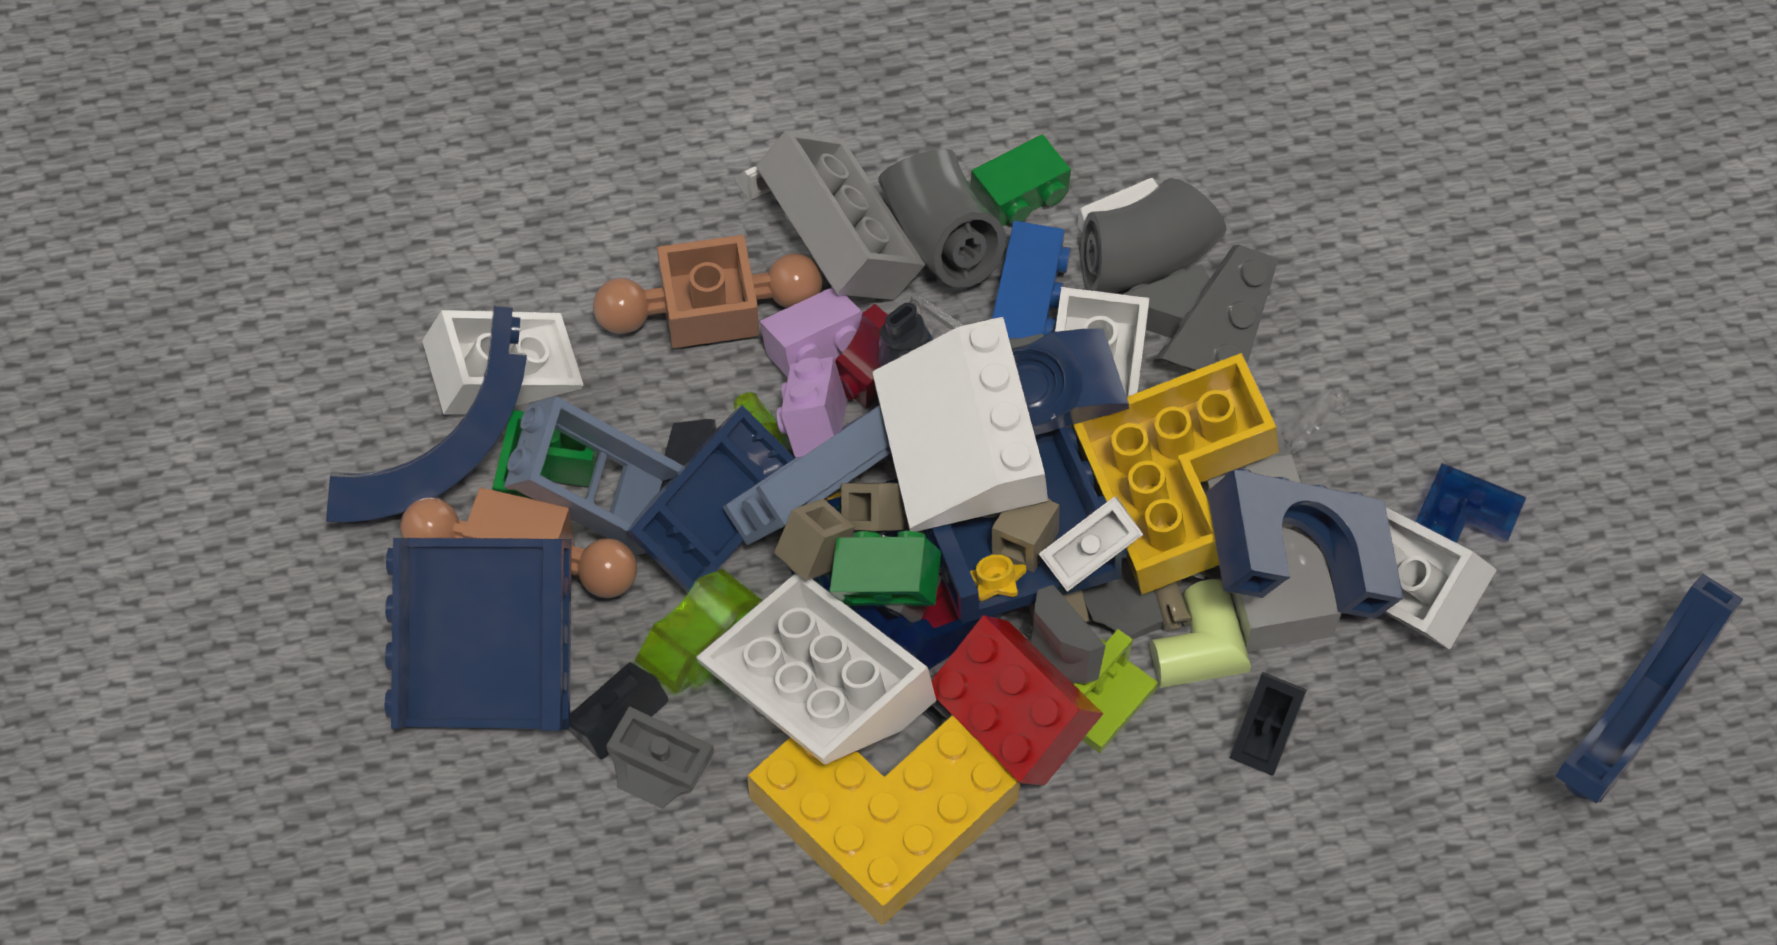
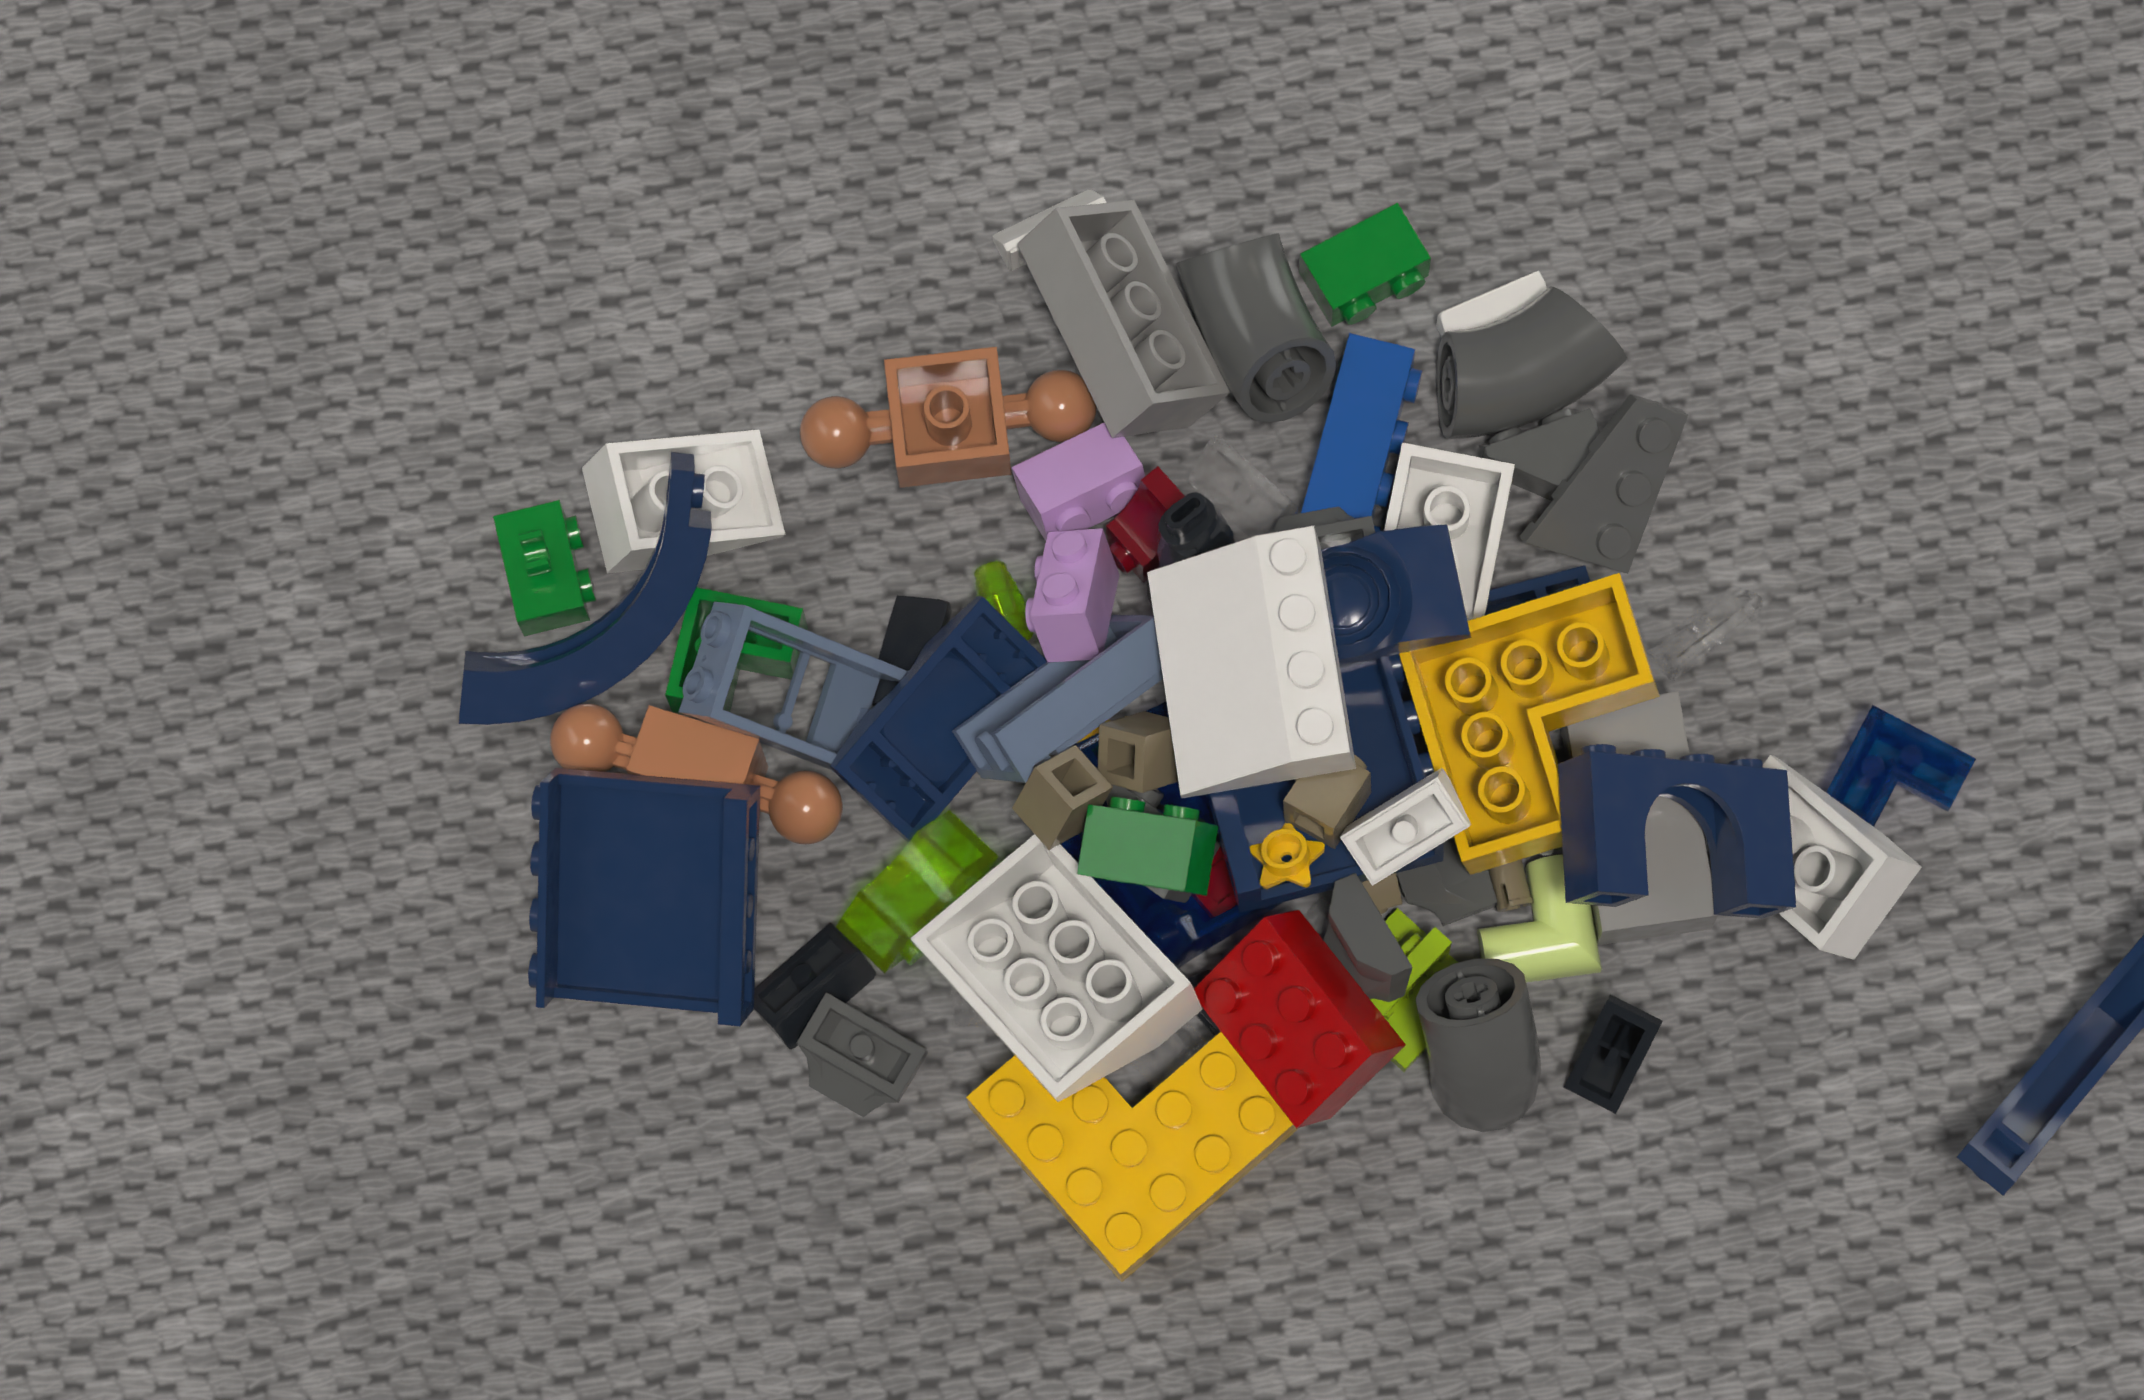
camera: 10 degrees right, 15 degrees up
(392, 411) = (543, 568): none -> green brick
(1163, 716) = (1480, 1043): none -> dark grey brick

